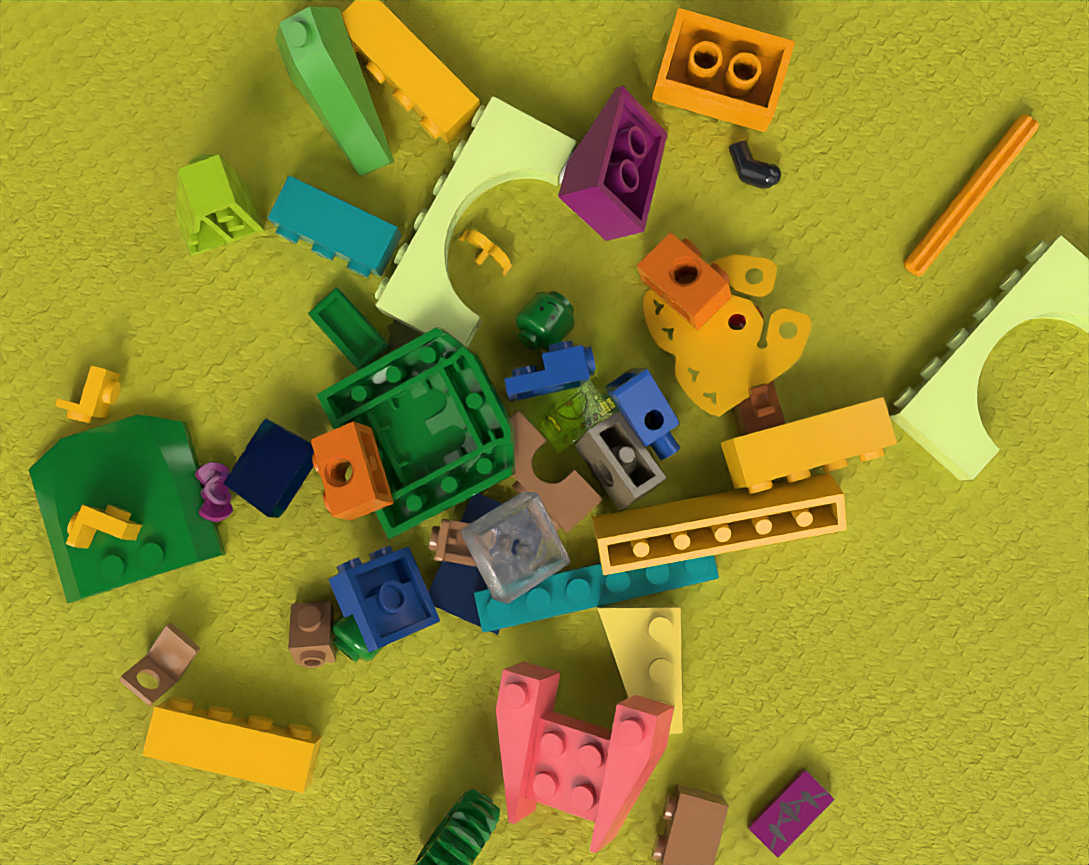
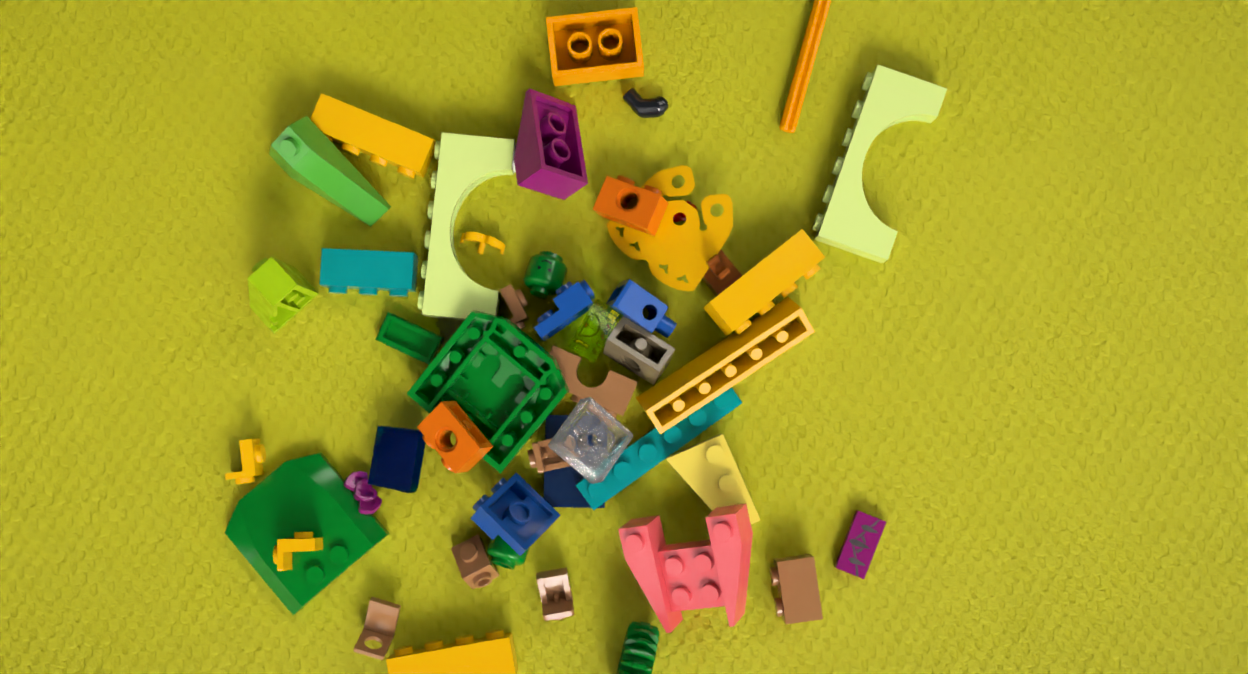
camera: 25 degrees left, 0 degrees up
(393, 715) = (555, 594): none -> medium nougat bracket
(495, 339) = (516, 302): none -> medium nougat bracket

